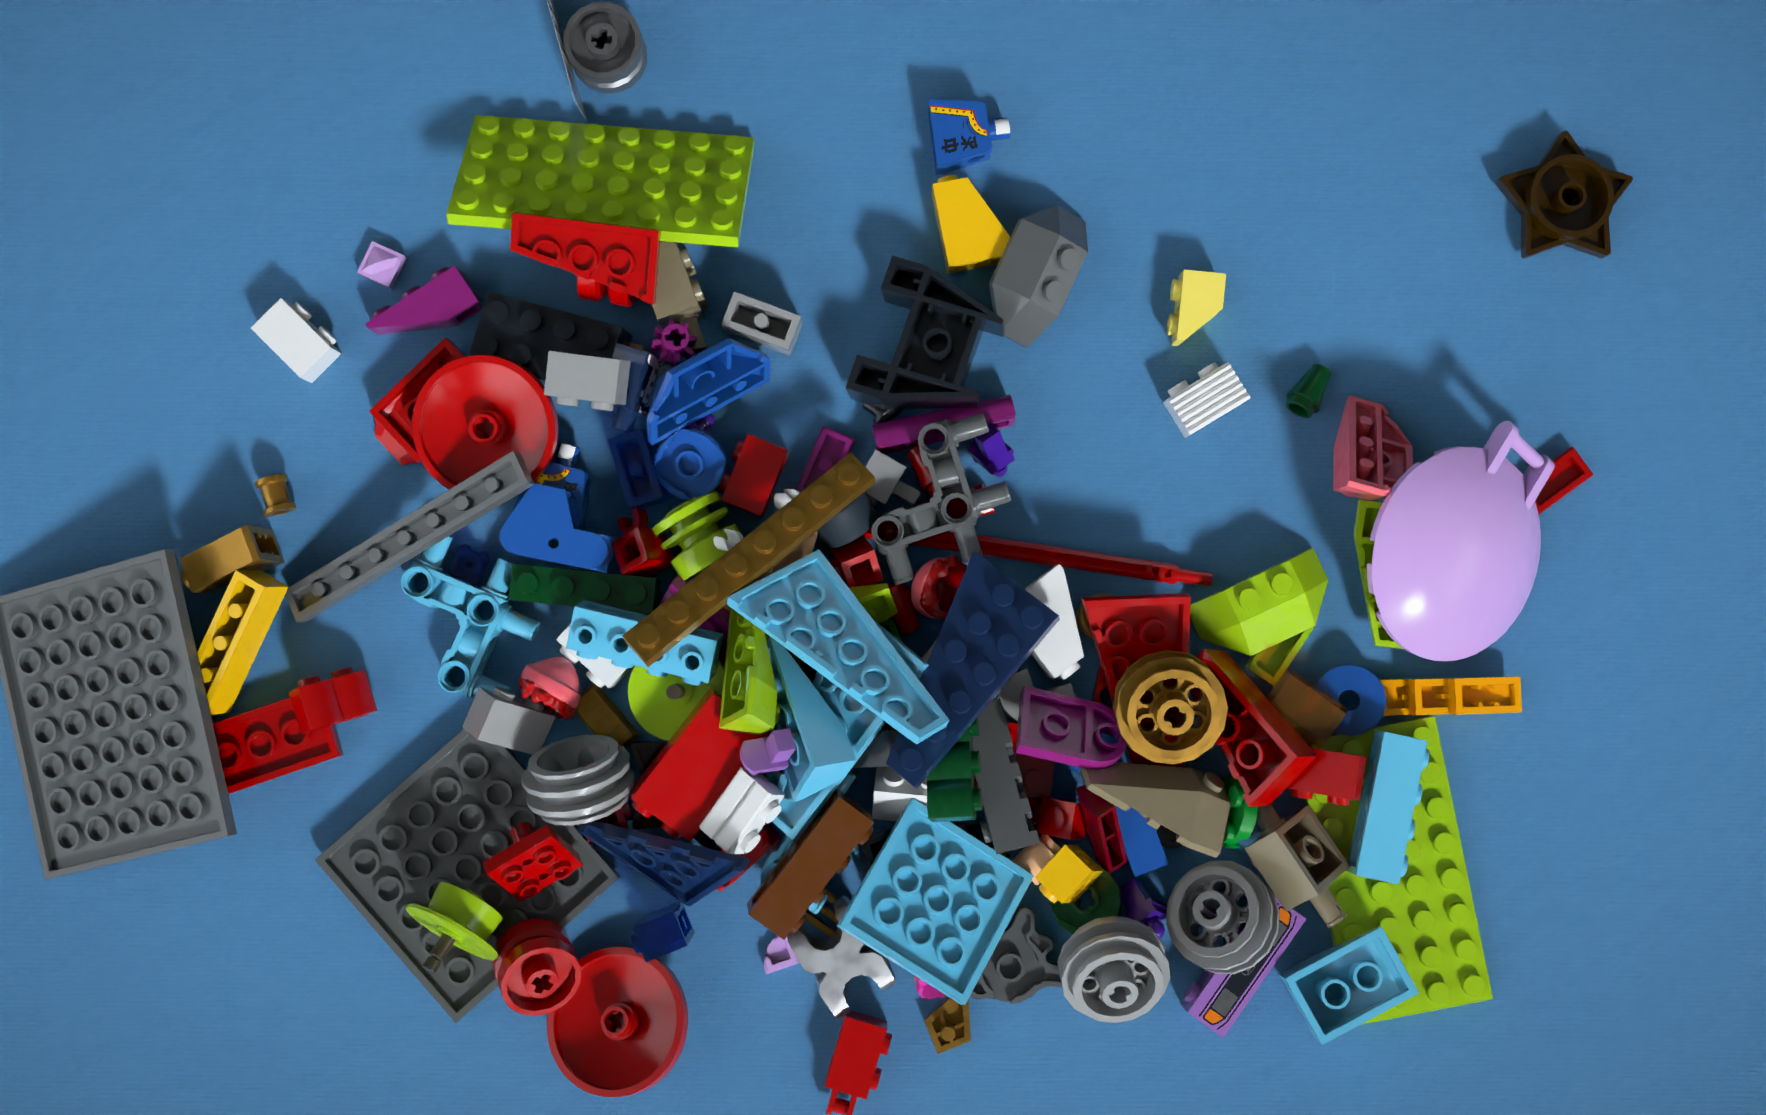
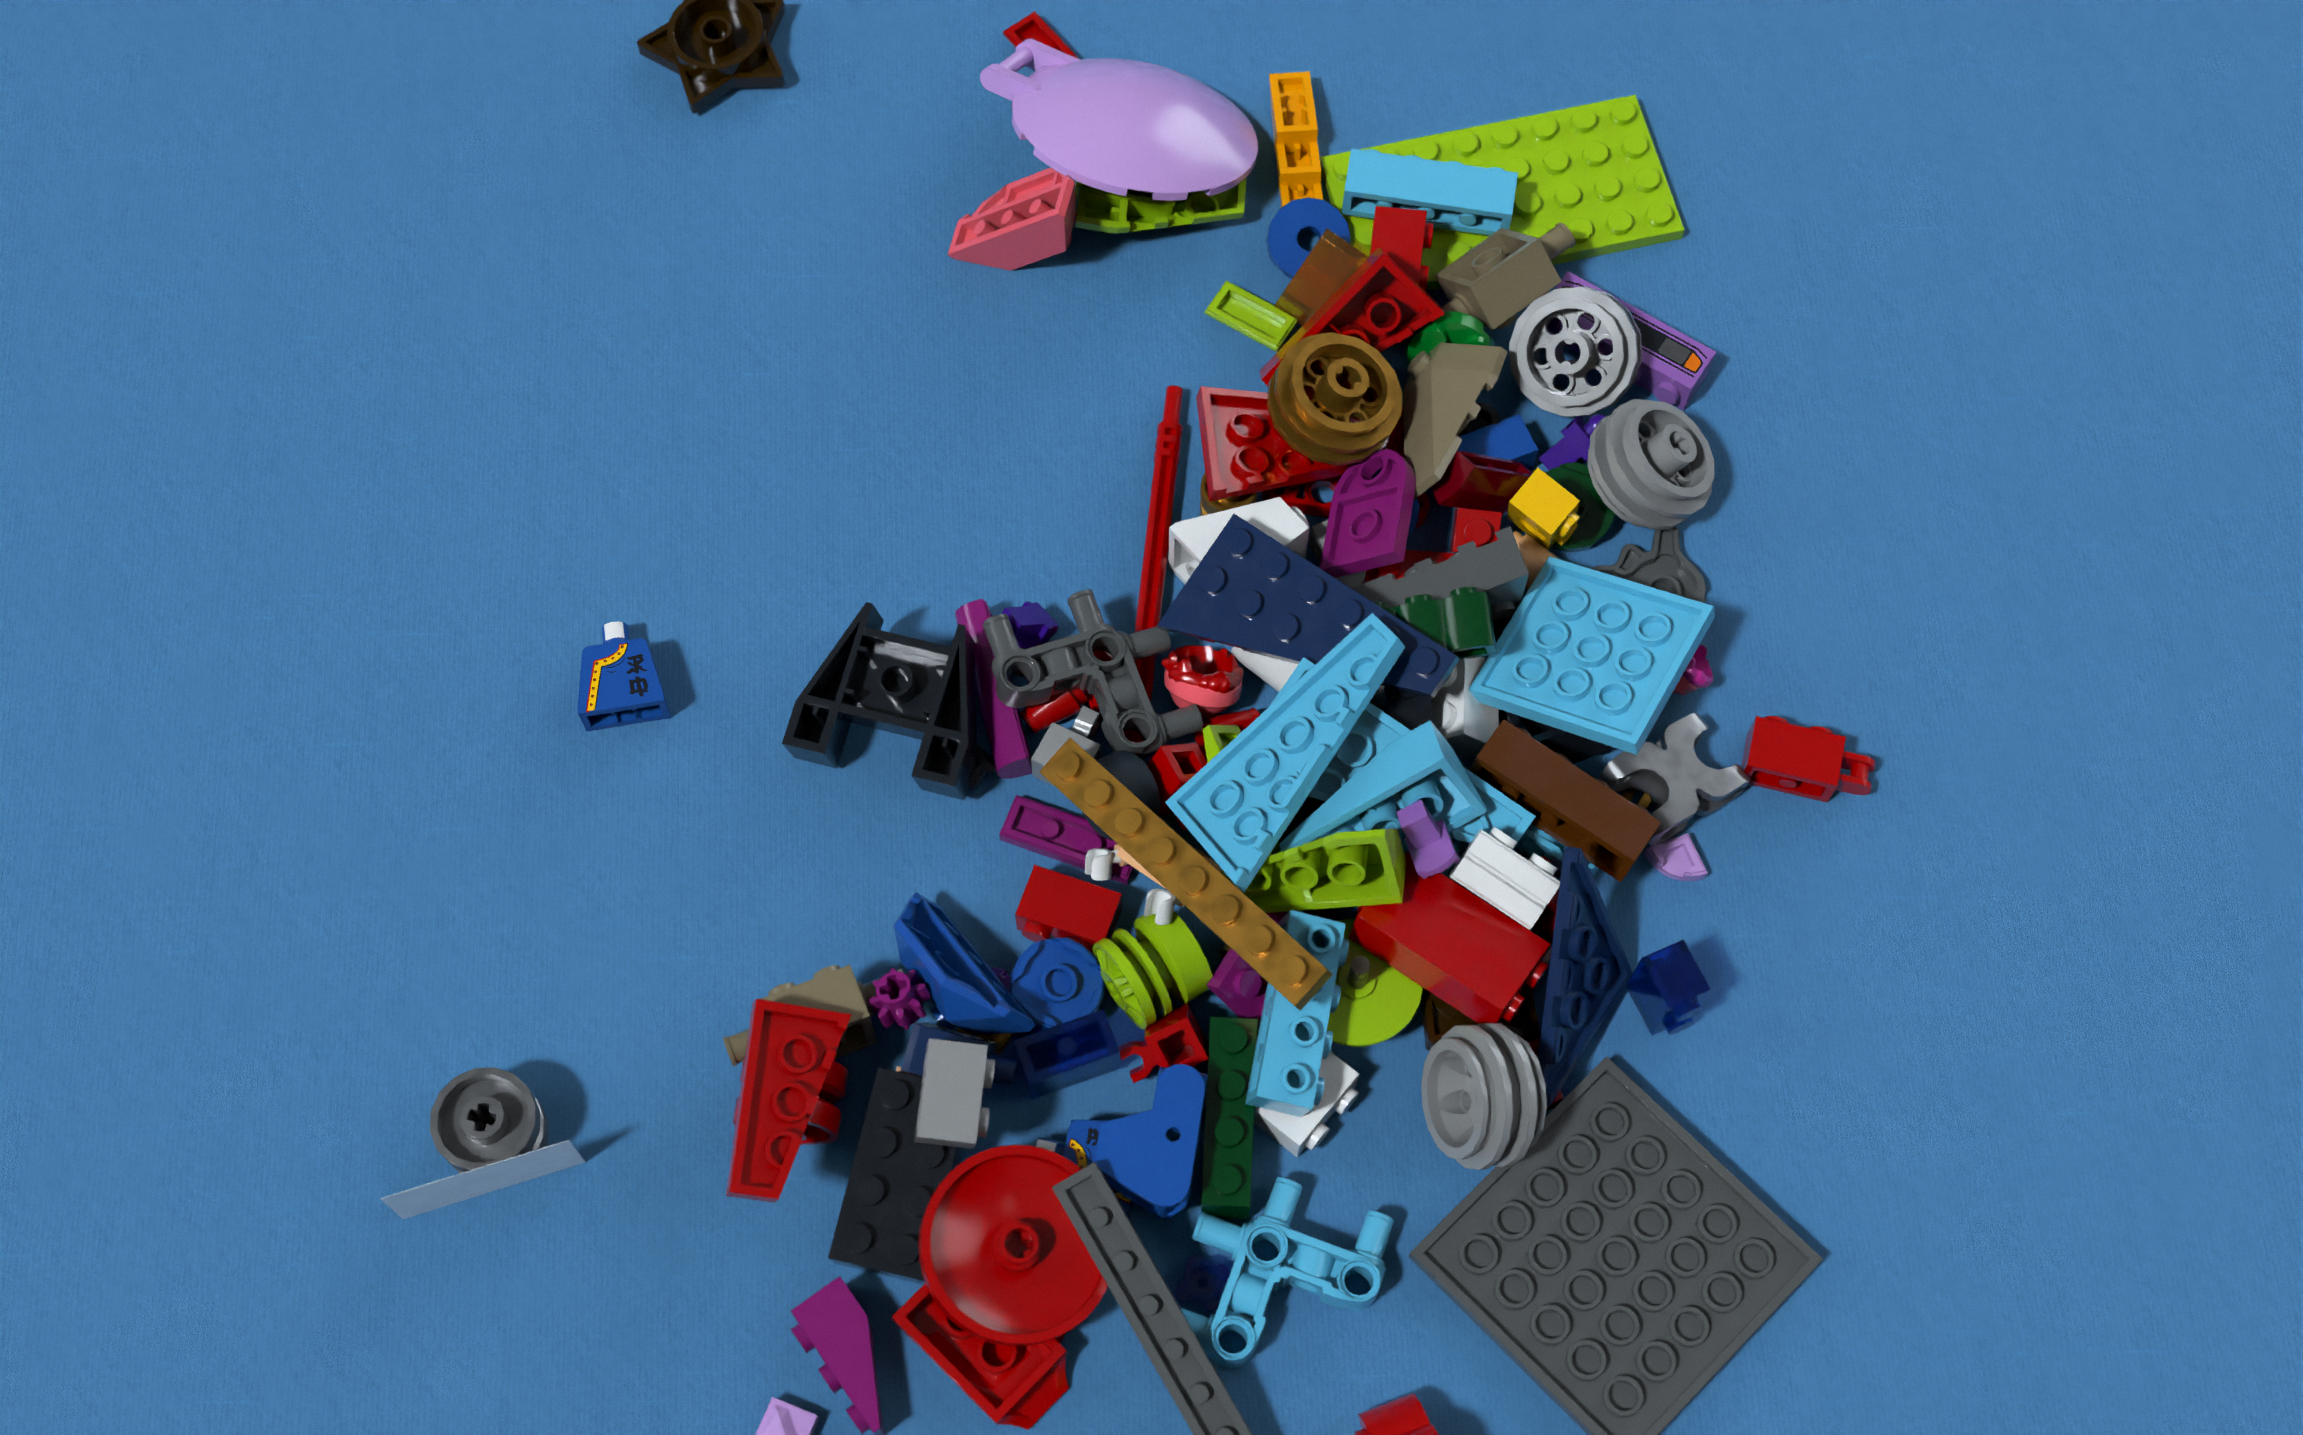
camera: 90 degrees left, 20 degrees down
(459, 920) = (1688, 1238): lime piece -> none
(508, 720) = (1411, 1199): light grey brick -> none
(532, 861) = (1595, 1150): red plate -> none
(536, 967) = (1734, 1143): red wheel -> none
(553, 683) = (1361, 1149): coral hair -> none
(604, 717) = (1393, 1098): pearl gold tile -> none
(606, 174) = (669, 1115): lime plate -> none
(620, 1025) = (1792, 1044): red dish -> none
(762, 323) = (869, 906): light grey brick -> none
(949, 1025) = (1740, 656): pearl gold piece -> none
(966, 226) = (740, 670): yellow slope -> none
(1037, 272) = (801, 579): dark grey wedge -> none
(1197, 301) = (840, 412): light yellow slope -> none
(1205, 399) = (957, 398): white brick -> none
(1263, 606) = (1202, 328): lime wedge -> none
(1309, 391) = (947, 292): dark green cone -> none
(1348, 984) = (1638, 228): medium azure slope -> none

